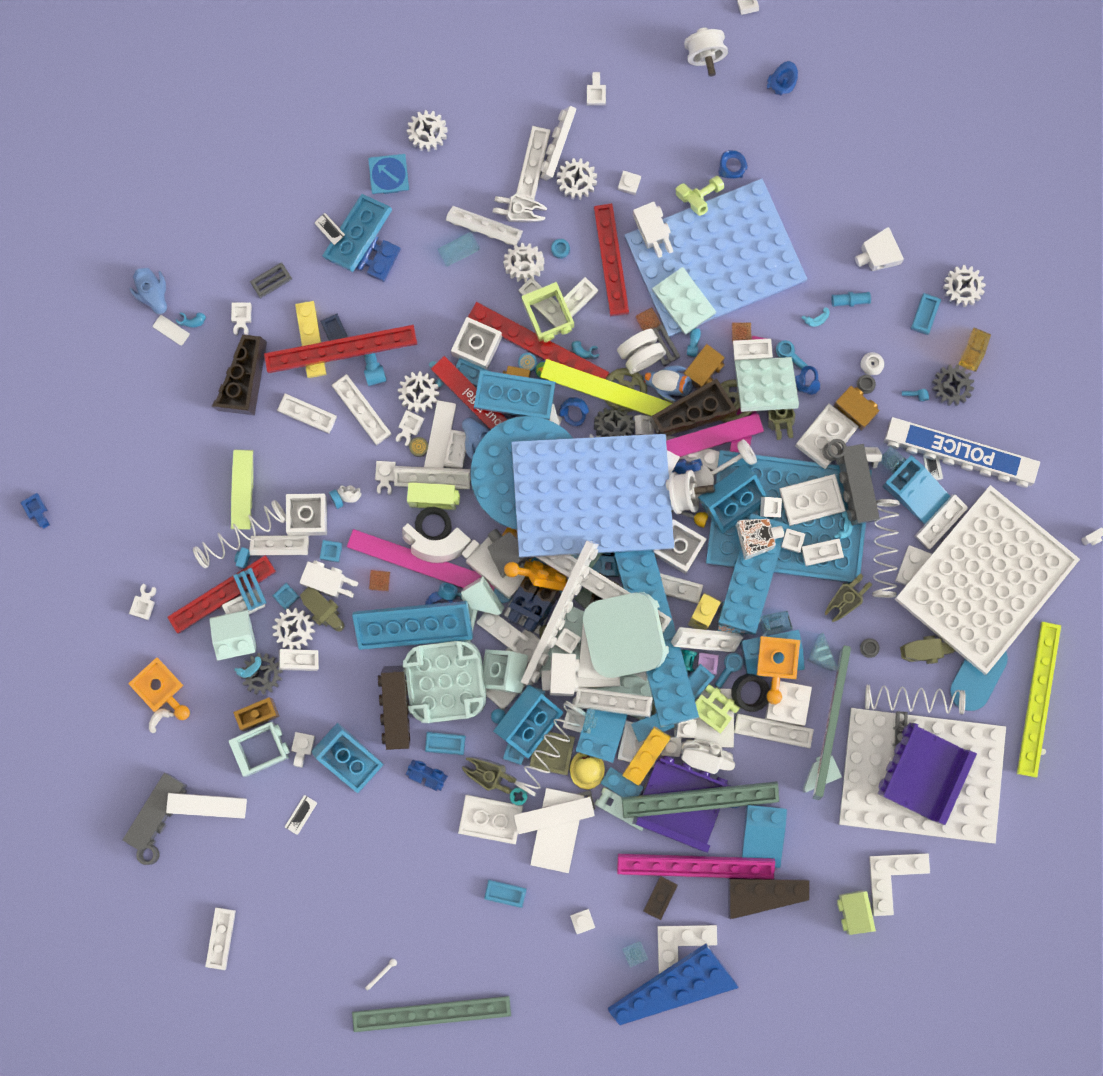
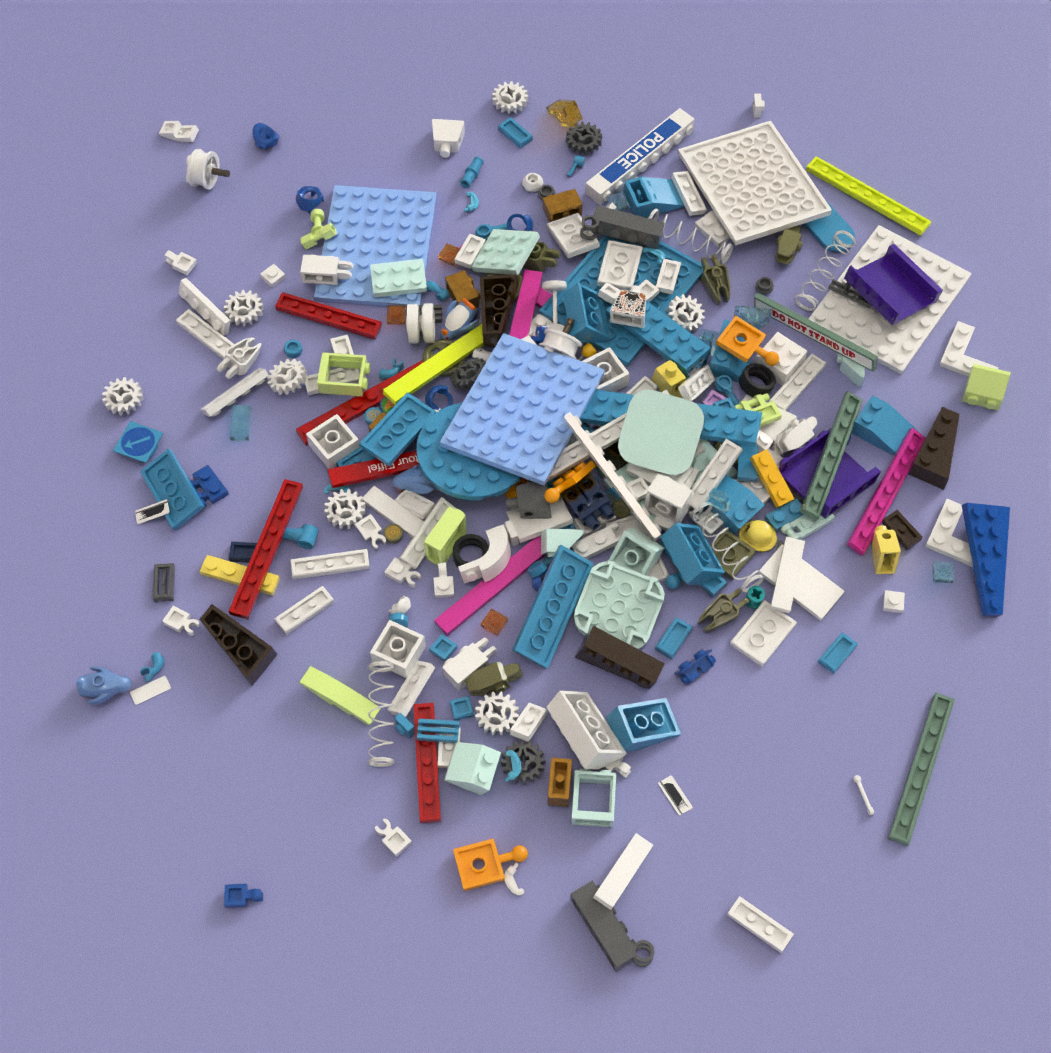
camera: 65 degrees left, 20 degrees down
(314, 712) = (585, 729): none -> white slope
(392, 519) = (443, 585): none -> white plate
(622, 895) = (883, 543): none -> light yellow torso
(785, 593) = (686, 312): none -> white gear

